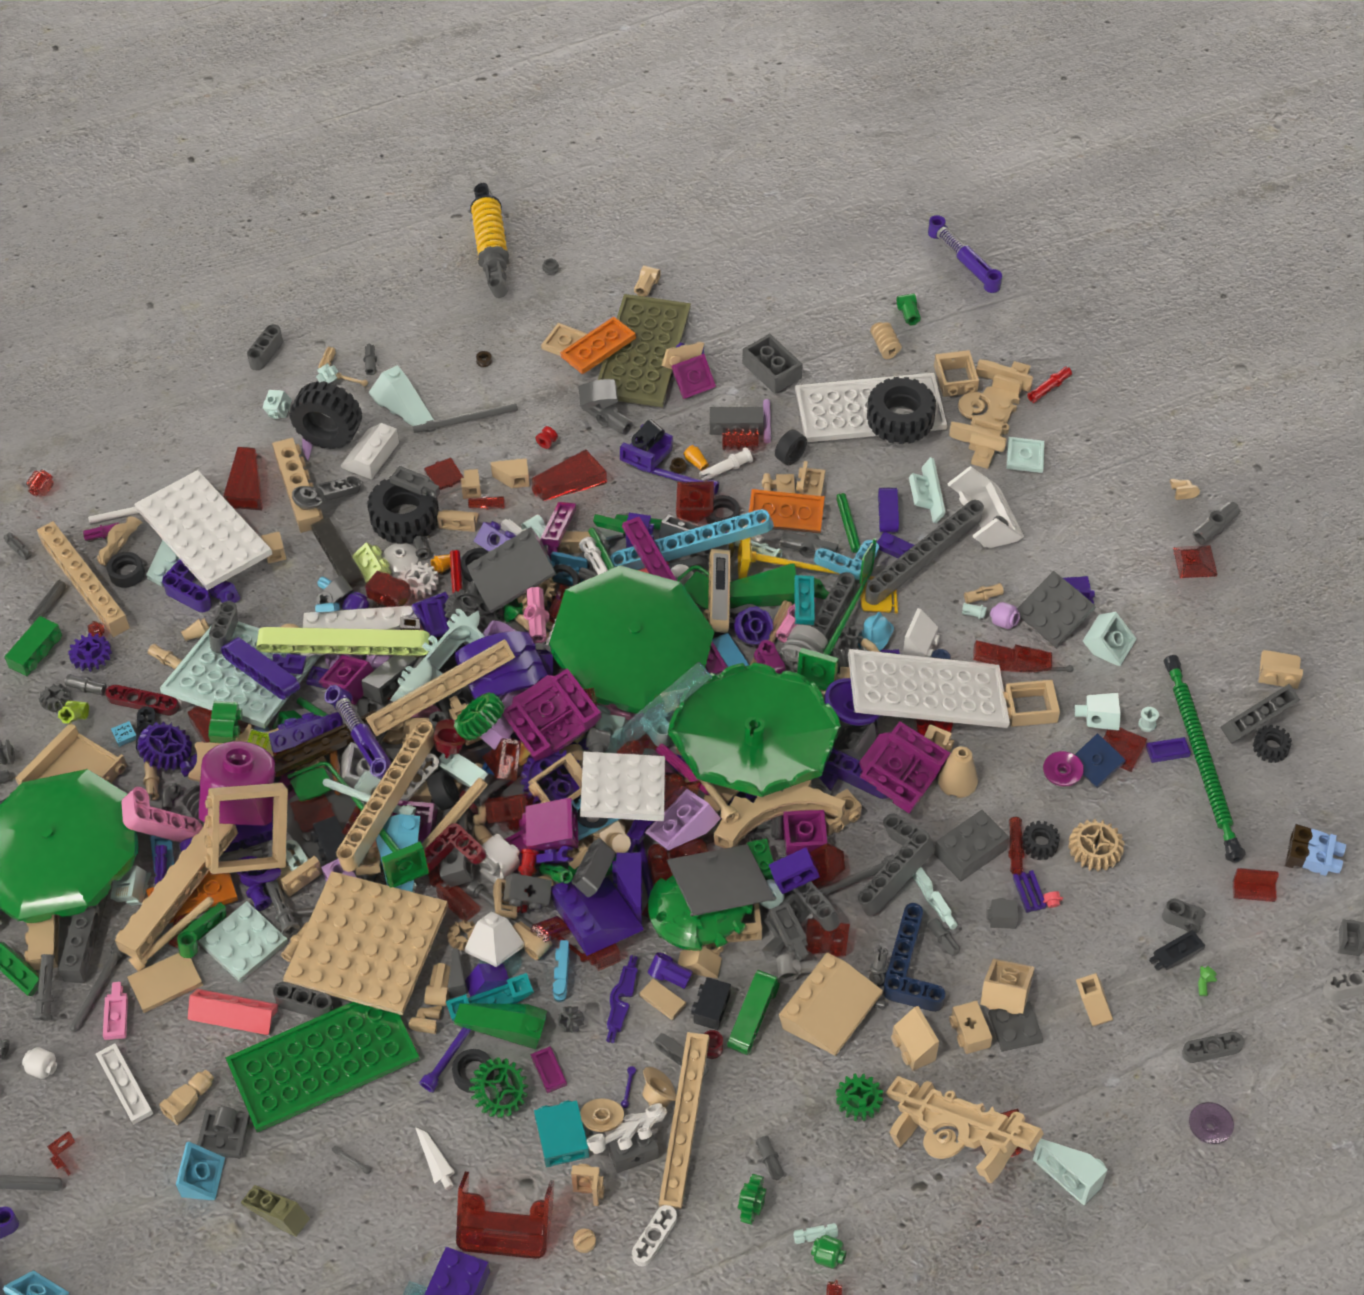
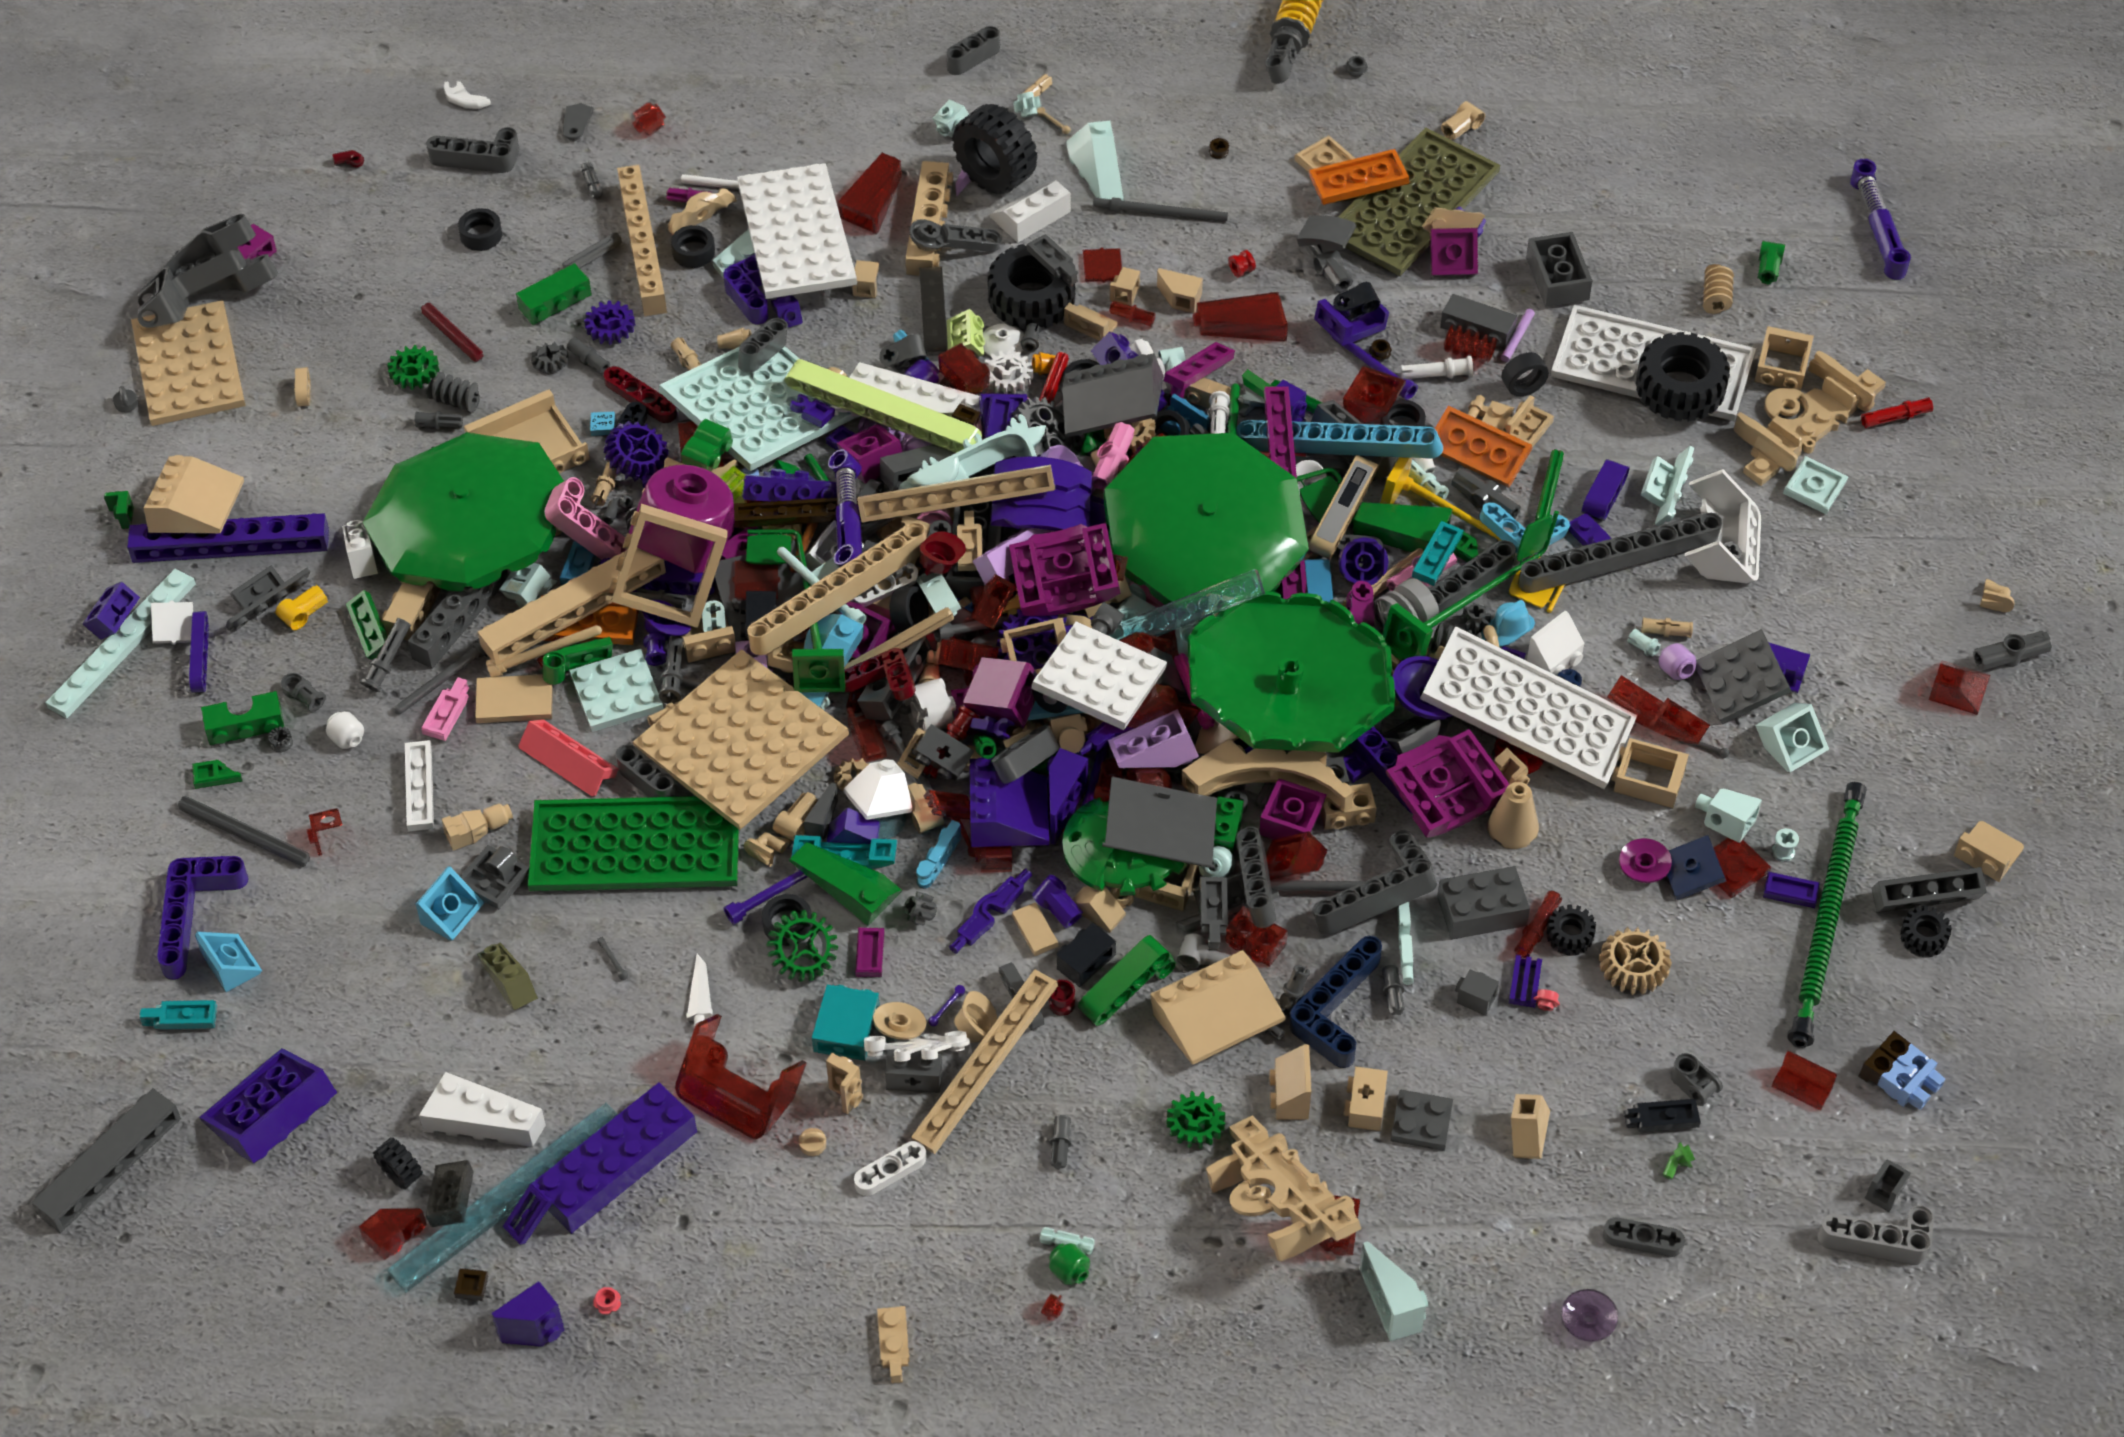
camera: 25 degrees right, 0 degrees up
(73, 711) = (559, 379): lime piece -> none
(95, 628) = (629, 299): clear red plate -> none
(160, 862) = (570, 569): dark purple axle -> none
(260, 668) = (777, 404): dark purple beam -> none
(327, 607) = (886, 364): medium azure tile -> none
(370, 359) = (1086, 105): dark grey axle -> none
(479, 716) = (981, 540): green gear -> none
(695, 457) = (1406, 347): light orange cone -> none
(728, 813) = (1208, 753): tan piece -> none
(752, 1199) = (1012, 1172): green gear -> none
(794, 870) = (1250, 845): dark purple brick -> none
(1007, 986) = (1432, 1070): tan slope -> none

